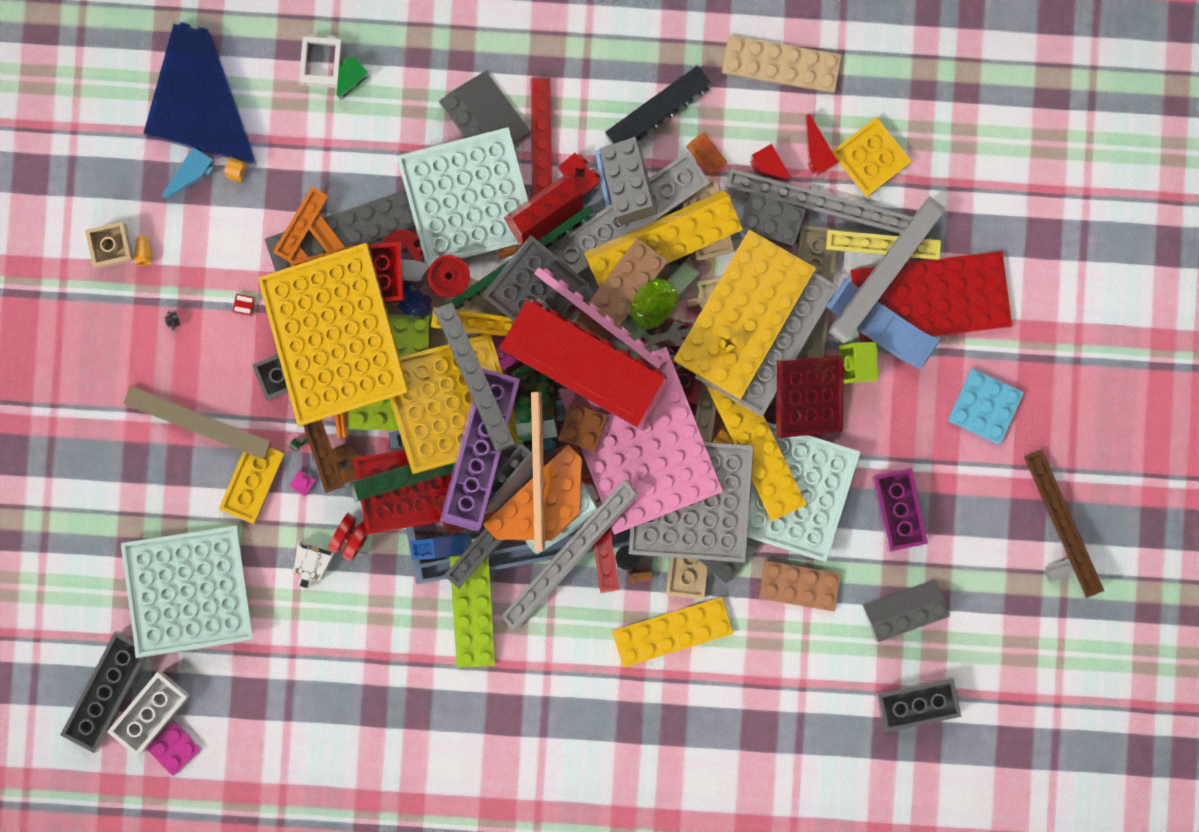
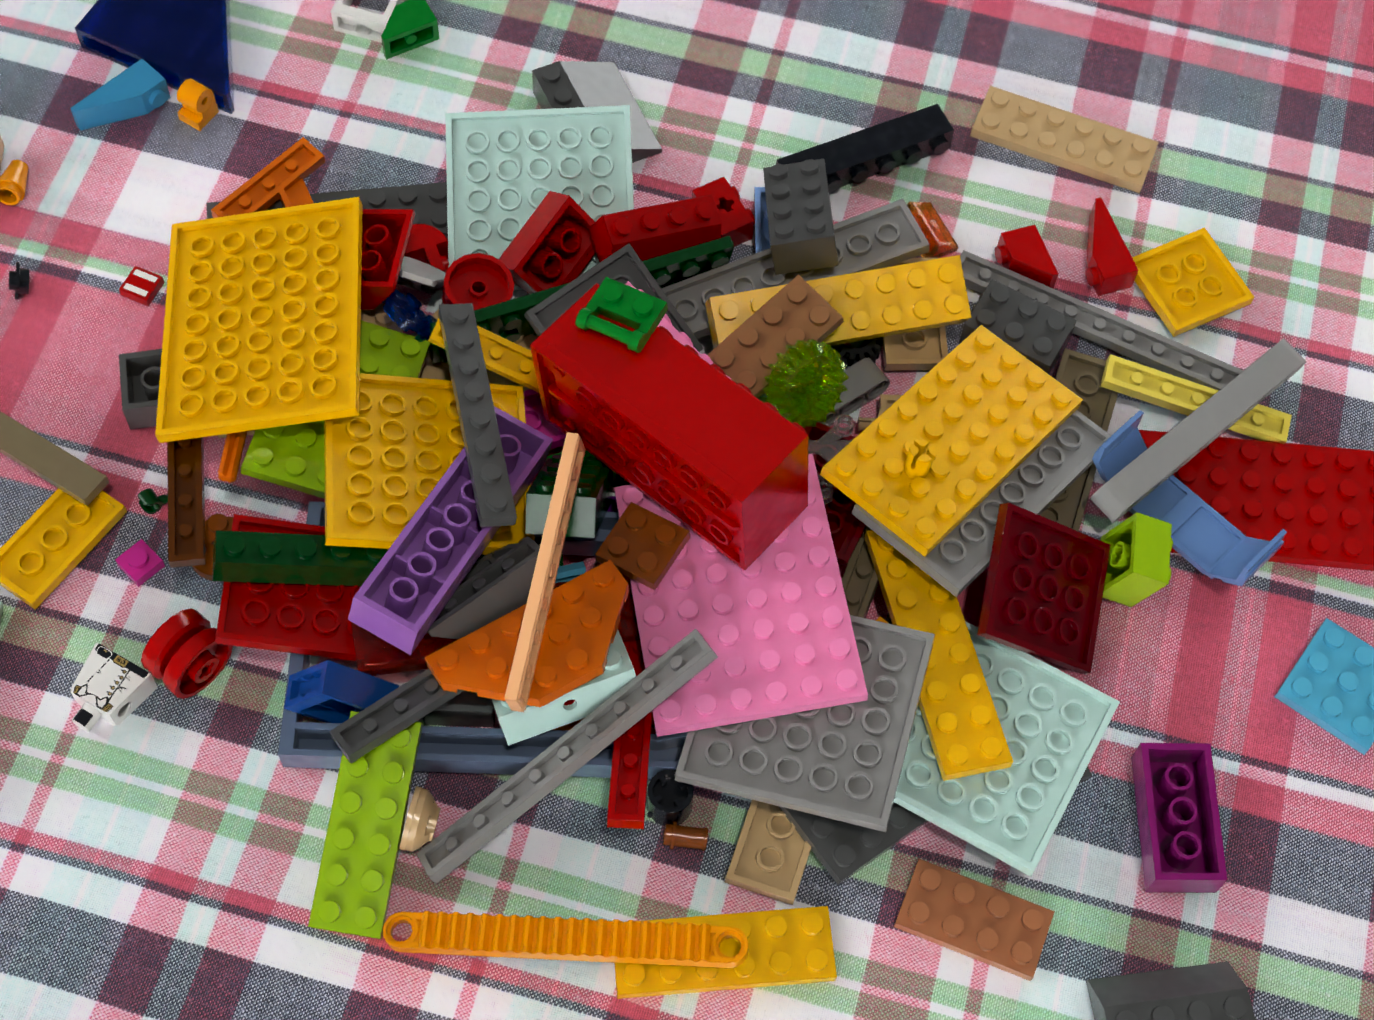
camera: 10 degrees right, 25 degrees down
(482, 234) = (551, 245): none -> red slope
(499, 601) = (420, 820): none -> tan piece
(540, 134) = (679, 142): red plate -> none
(549, 315) = (626, 307): none -> green plate
(590, 646) = (566, 939): none -> light orange gear

